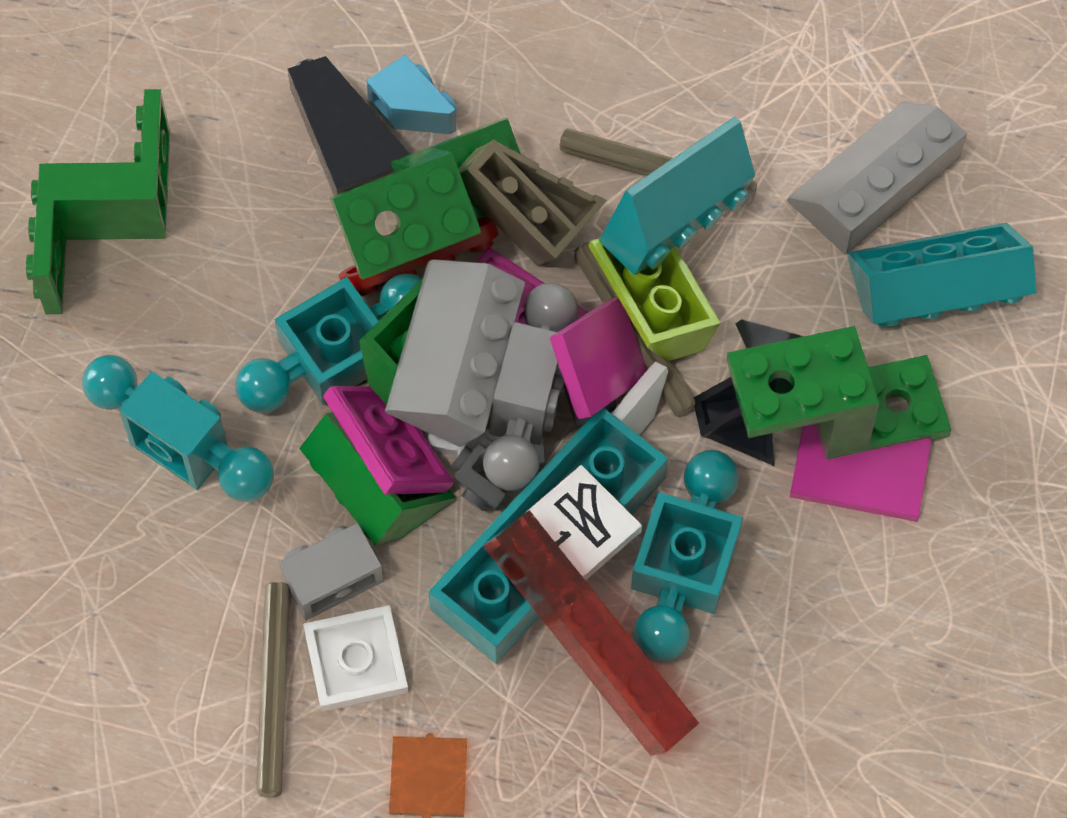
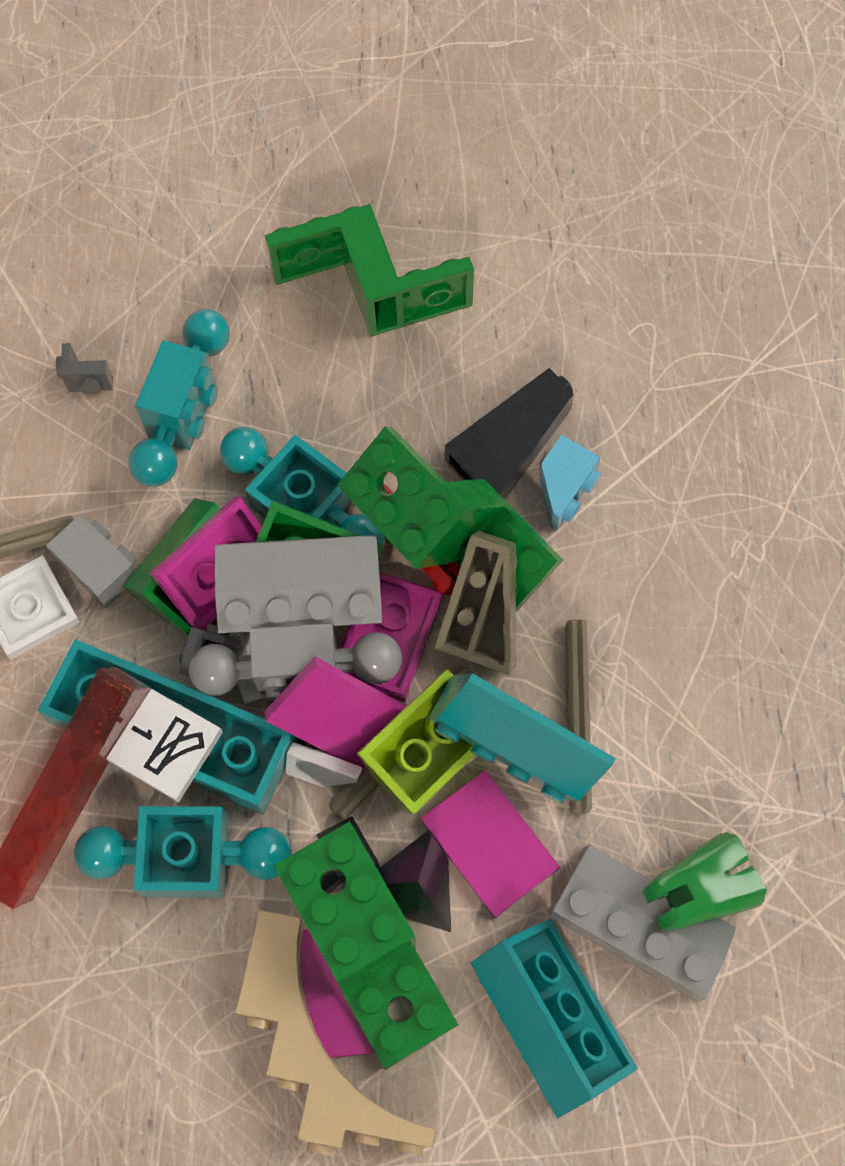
camera: 75 degrees right, 5 degrees up
(105, 526) = (83, 376): none -> dark grey bracket
(762, 280) = (490, 844): none -> dark pink tile
(860, 501) = (333, 1105): none -> tan arch
(861, 101) = (702, 884): none -> green piece

